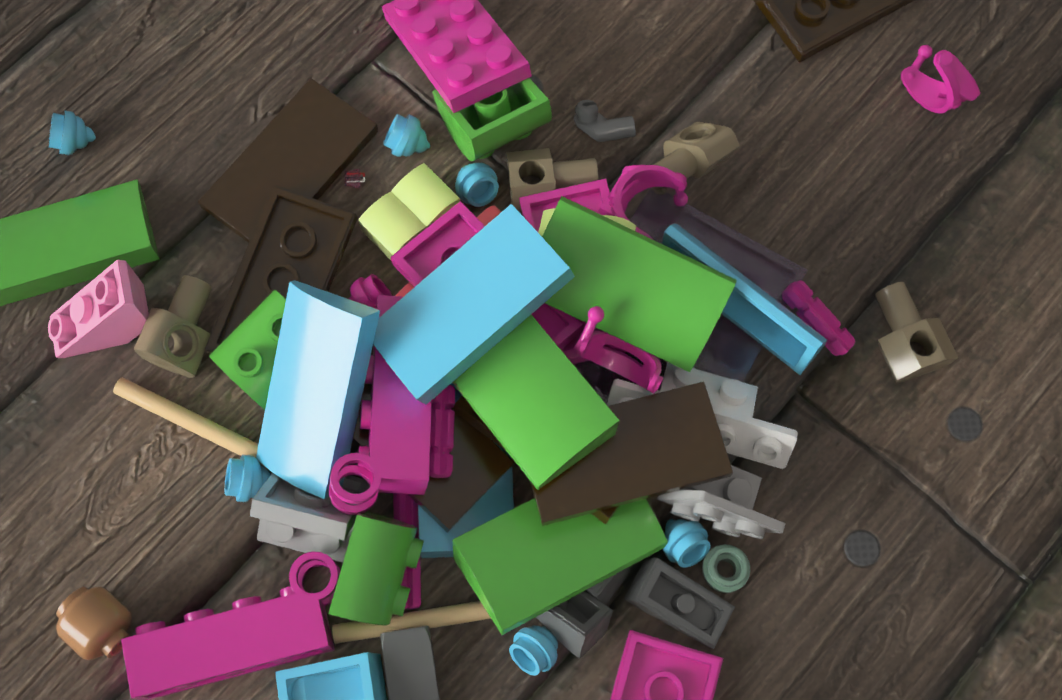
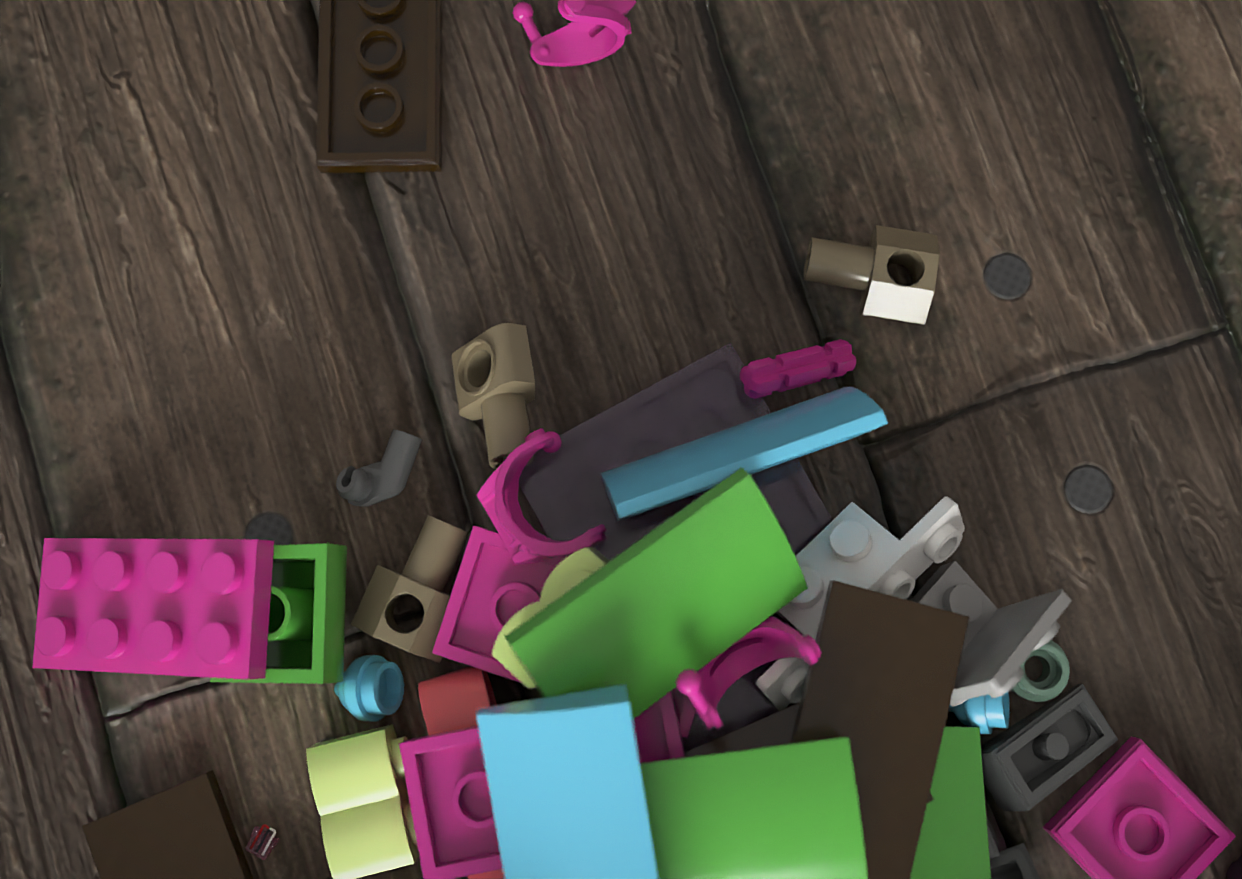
camera: 60 degrees left, 10 degrees up
(406, 136) = (247, 743): medium azure plate -> none

